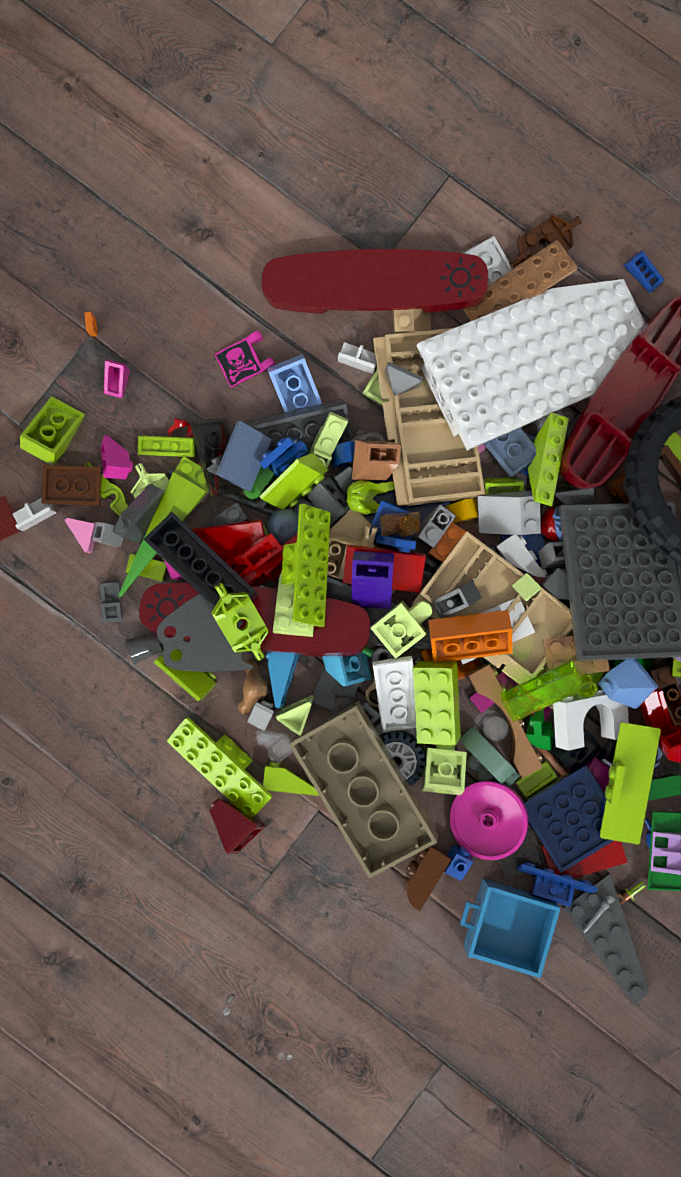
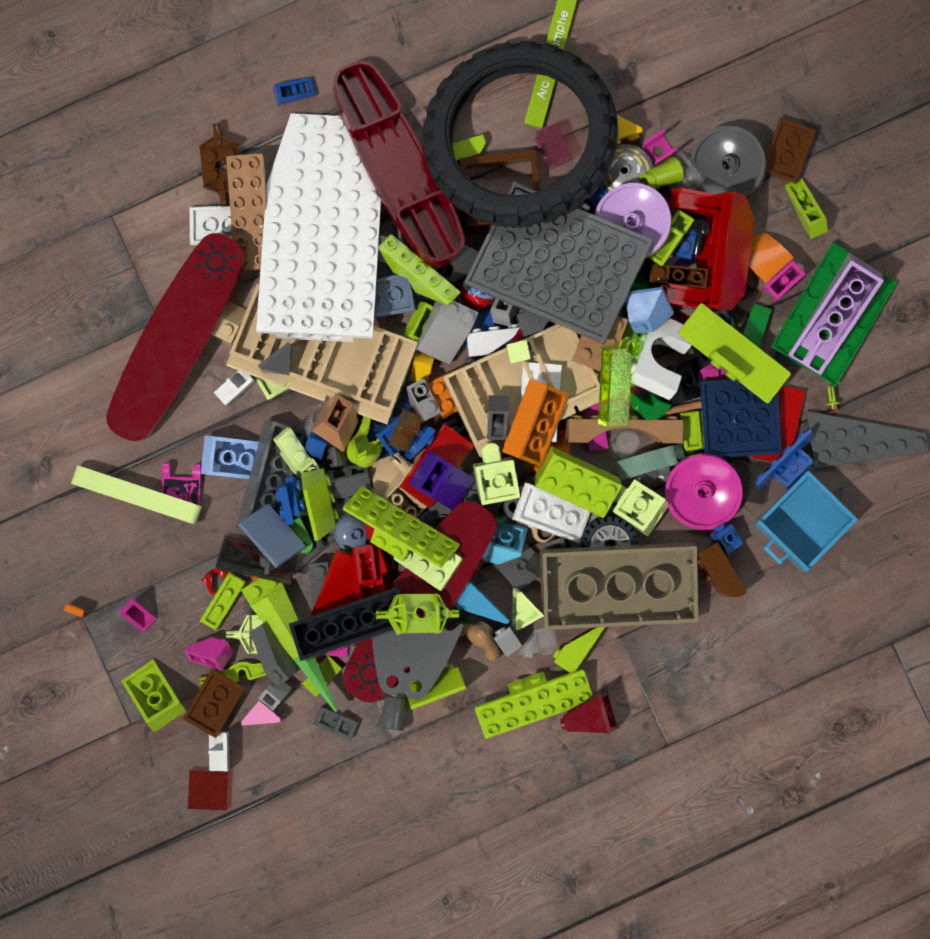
camera: 60 degrees left, 0 degrees up
(218, 322) = (136, 495): none -> yellowish green beam
(604, 906) = (830, 431): light grey piece -> none

